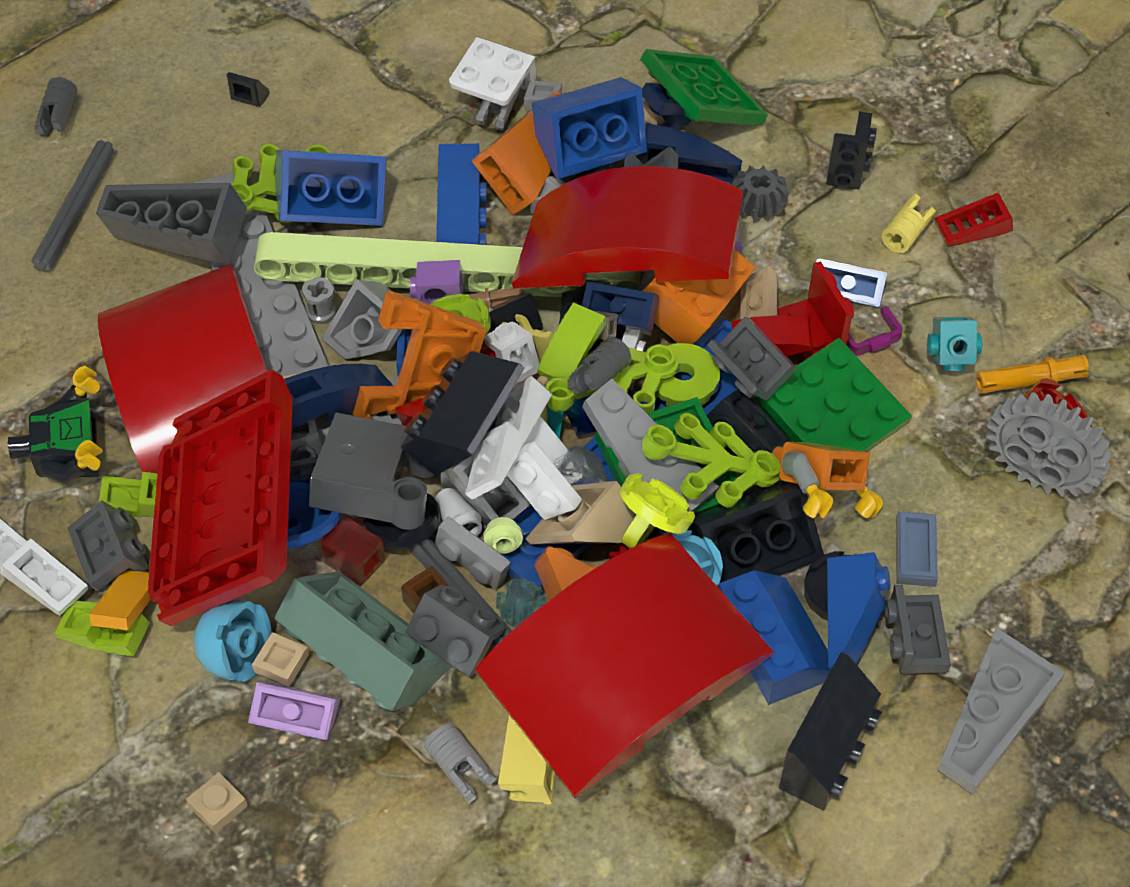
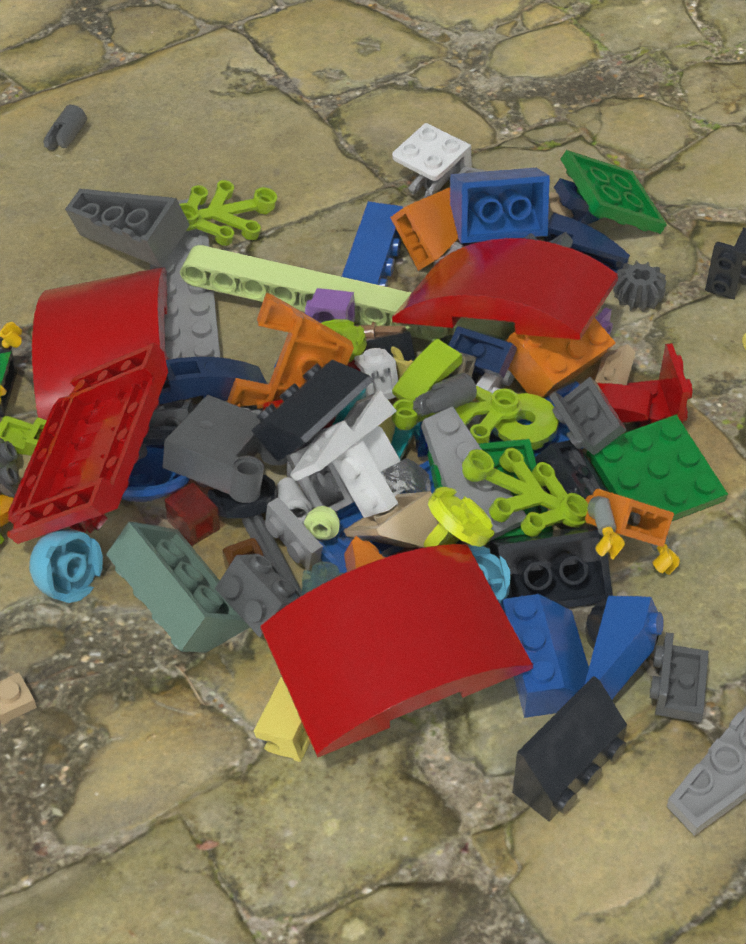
camera: 15 degrees right, 5 degrees down
(72, 206) = (53, 205): dark grey axle -> none
(246, 89) = (224, 138): black slope -> none
(280, 659) = (102, 590): tan plate -> none
(293, 710) = (101, 635): lavender slope -> none
(322, 302) = (230, 314): light grey bush -> none
(330, 187) = (266, 220): blue slope -> none
(356, 325) = (252, 341): light grey slope -> none
(457, 757) = (226, 704): light grey hinge -> none
(857, 283) = (708, 374): slope -> none
(880, 341) = (715, 427): magenta piece -> none
(916, 549) = (701, 609): sand blue tile -> none

